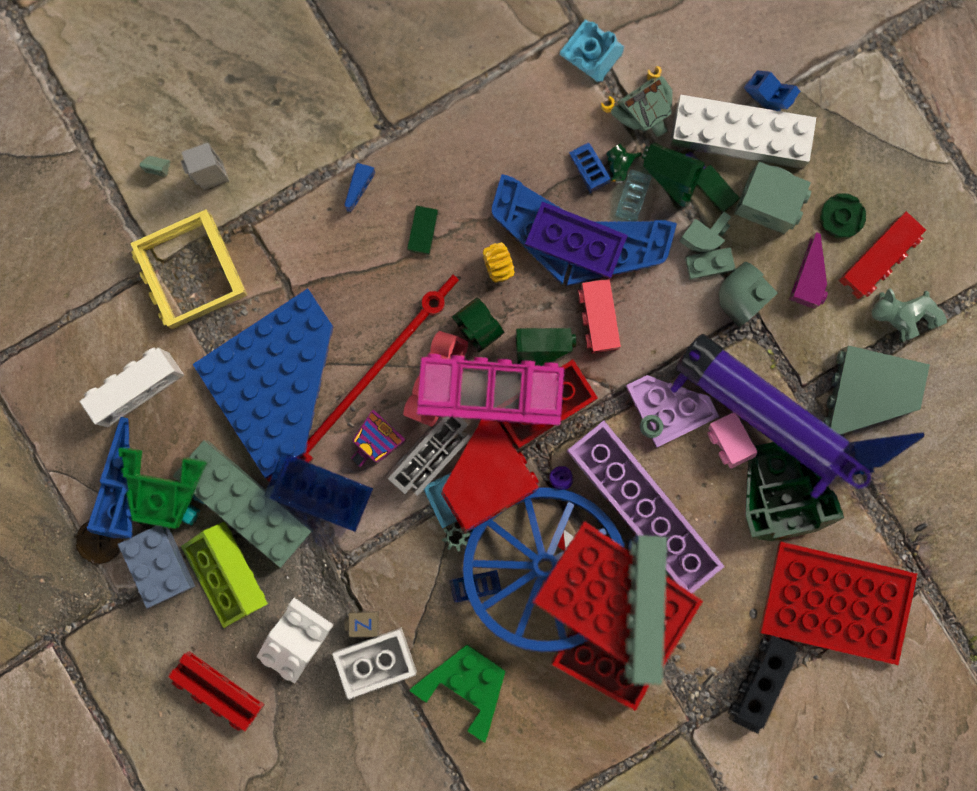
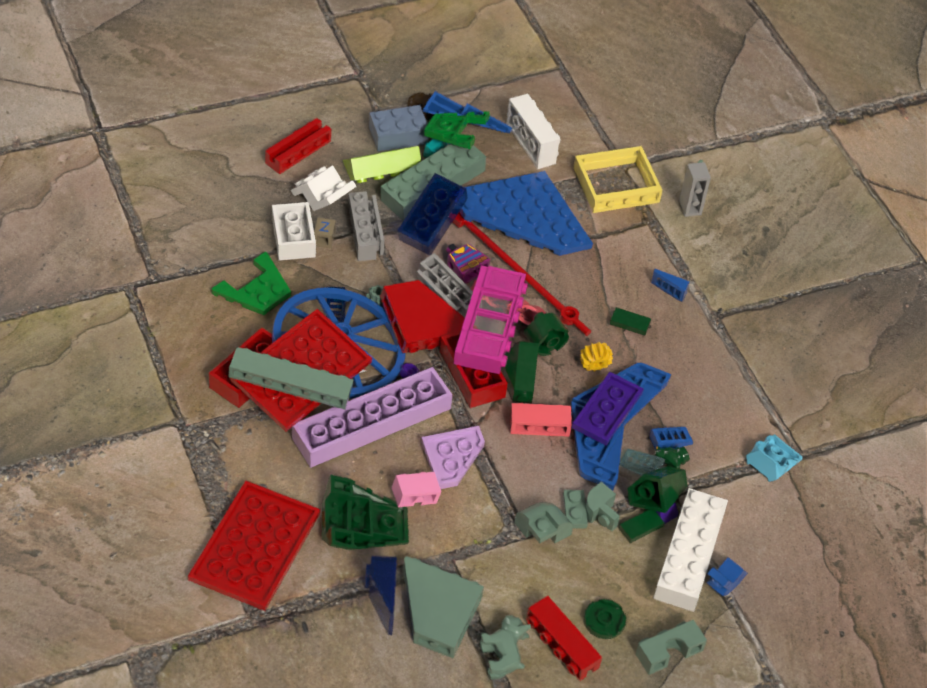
camera: 95 degrees right, 35 degrees down
(342, 580) = (365, 226): none -> light grey brick
(645, 105) = (723, 481): sand green torso -> none
(658, 423) = (440, 428): sand green plate -> none
(765, 697) = (202, 473): black brick -> none
(768, 411) = (433, 506): dark purple piece -> none
(773, 198) = (627, 553): sand green brick -> none
(811, 277) = (552, 578): magenta slope -> none
(874, 160) = (684, 637): none -> sand green arch

